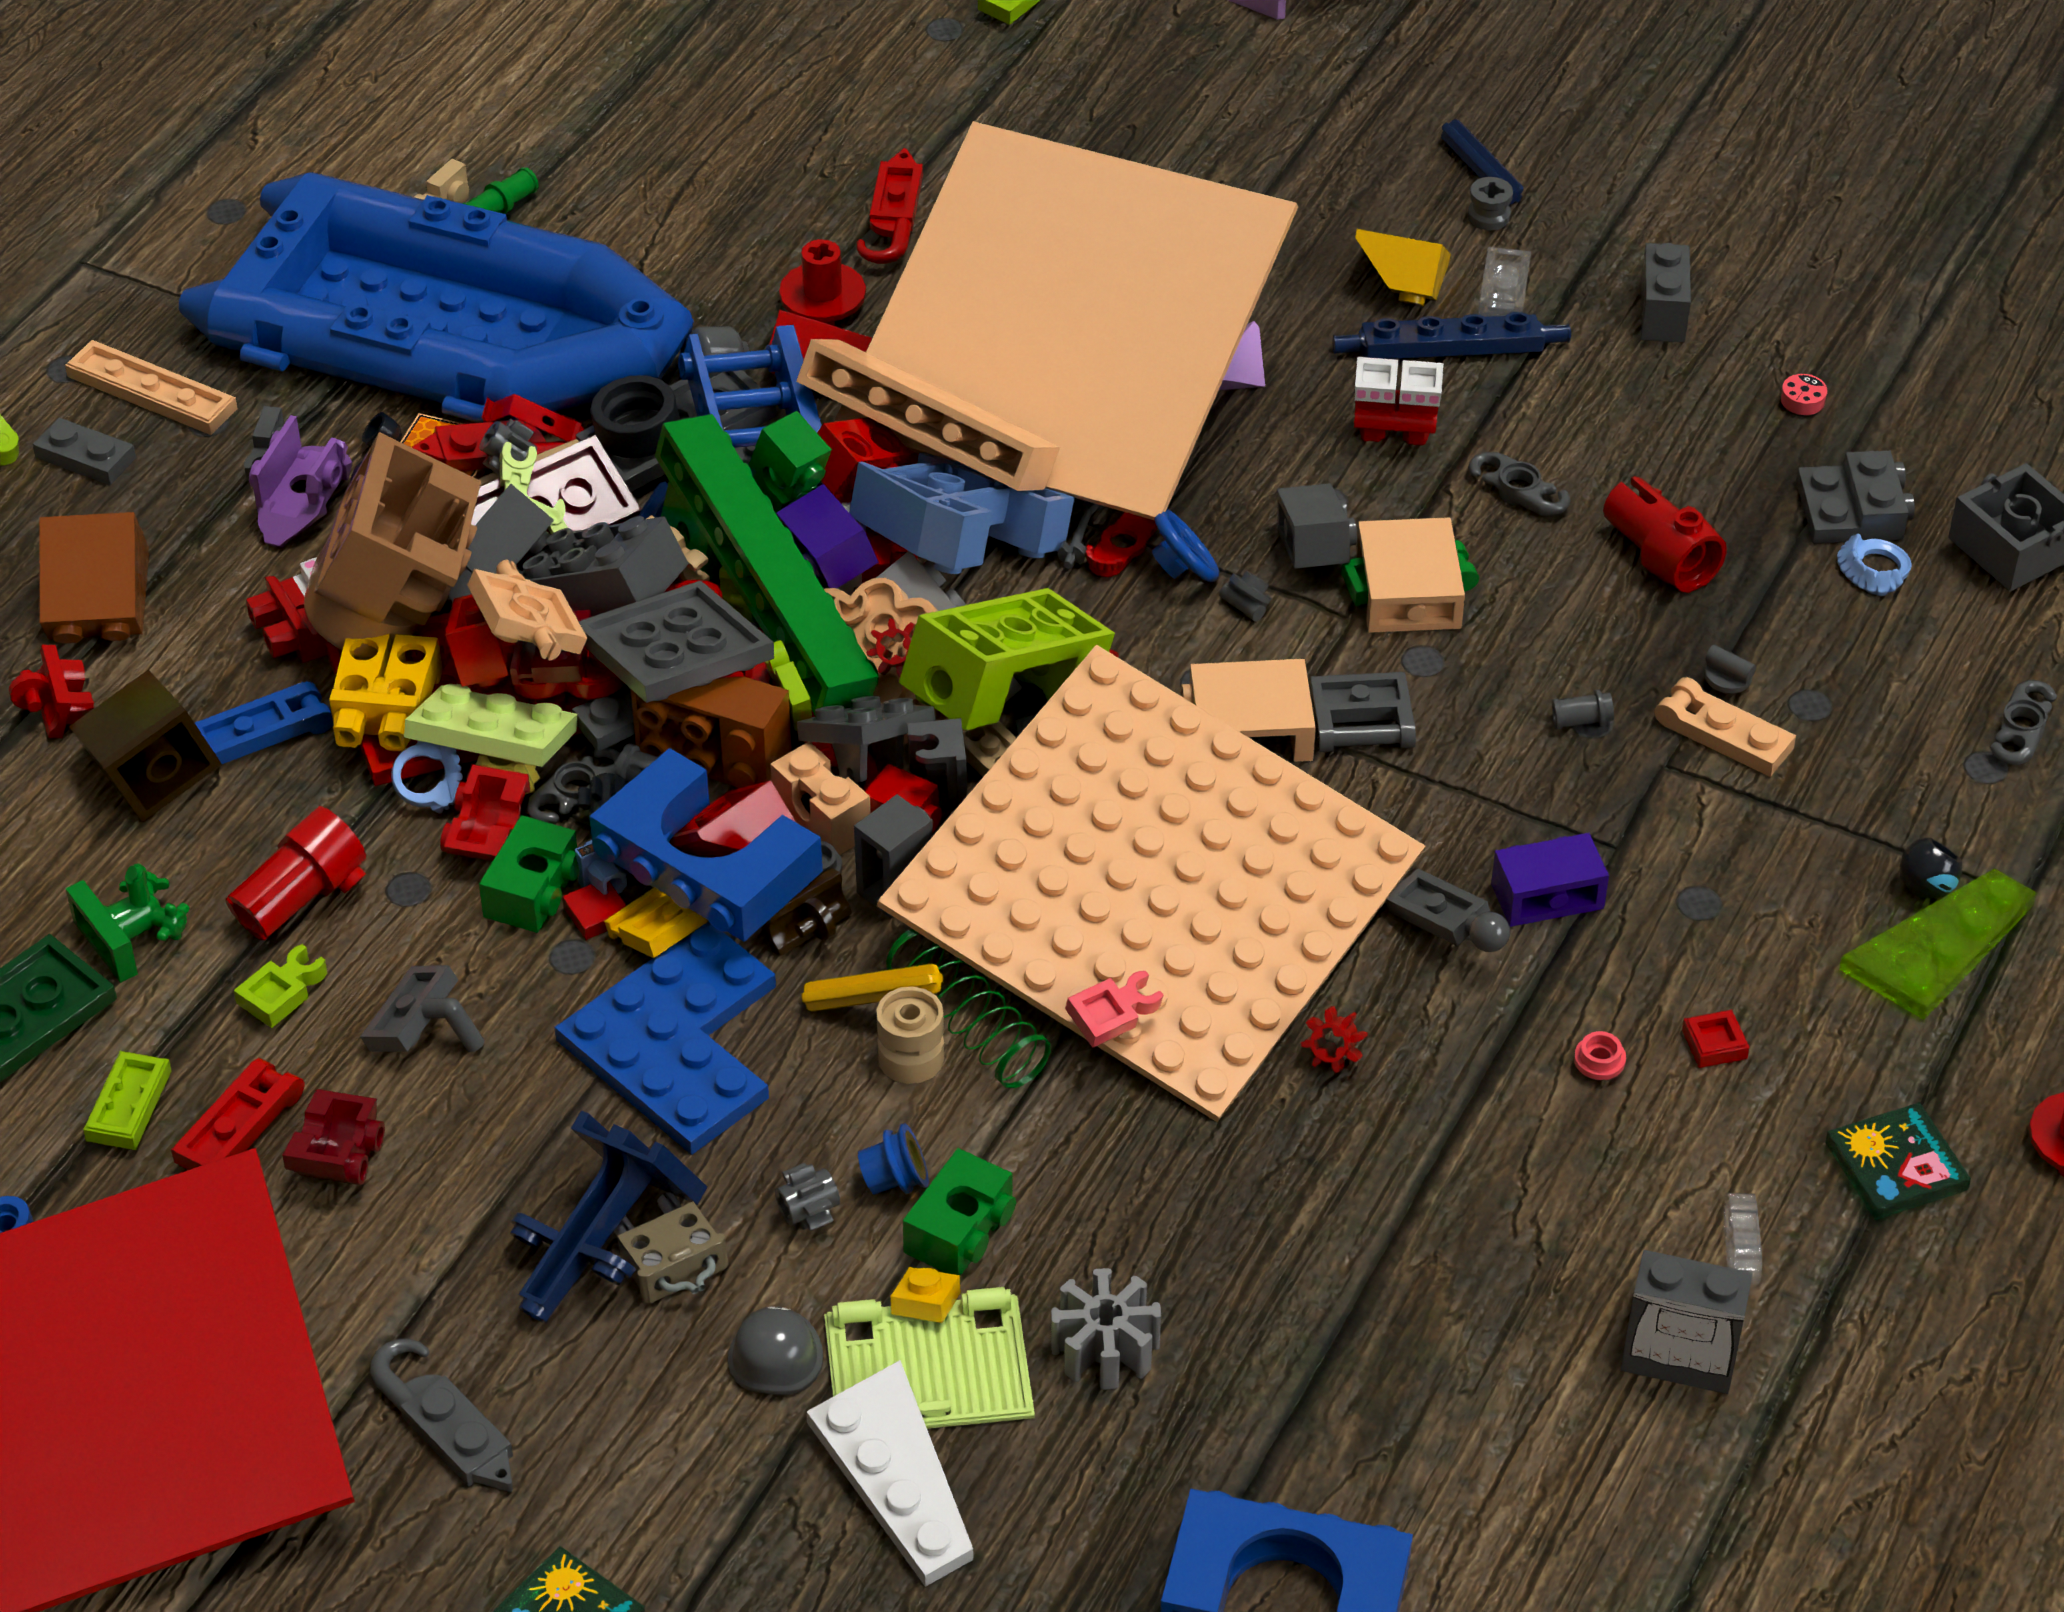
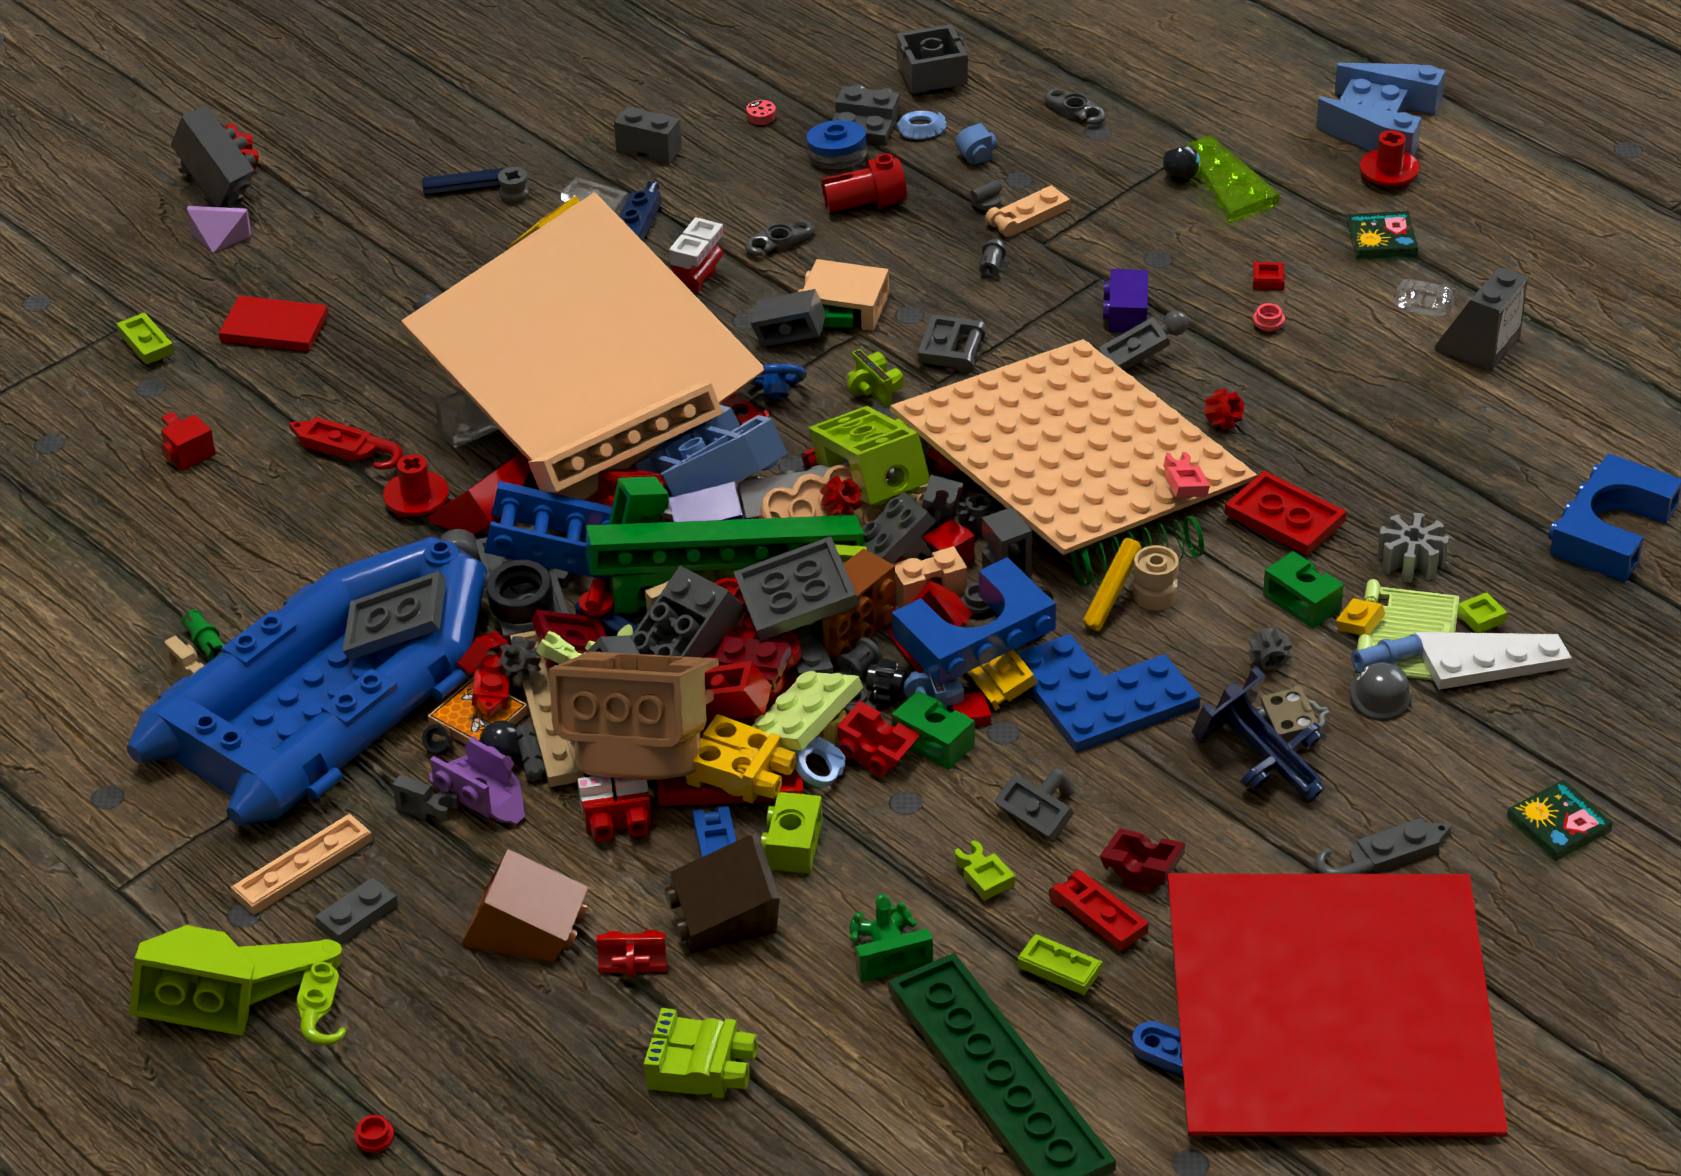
camera: 70 degrees left, 5 degrees down
(294, 782) = (793, 832): none -> lime brick
(309, 861) = (883, 829): red piece -> none
(526, 611) = (756, 641): light nougat plate -> none
(530, 316) = (394, 615): none -> dark grey plate
(648, 490) = (596, 600): none -> red plate
(836, 78) = (186, 440): none -> red brick
(842, 1333) = (1387, 651): none -> medium blue pin
(894, 1162) = (1255, 605): blue piece -> none
(989, 1443) = (1482, 613): none -> lime plate
(1104, 85) = (273, 323): none -> red tile
(1131, 1162) = (1285, 512): none -> red plate
(1239, 639) = (871, 377): none -> lime hips
(1247, 595) = (823, 367): dark grey plate -> none
(1258, 699) = (932, 369): light nougat panel -> none
(1758, 483) = (837, 144): none -> blue piece
(1844, 630) = (976, 144): none -> medium blue plate

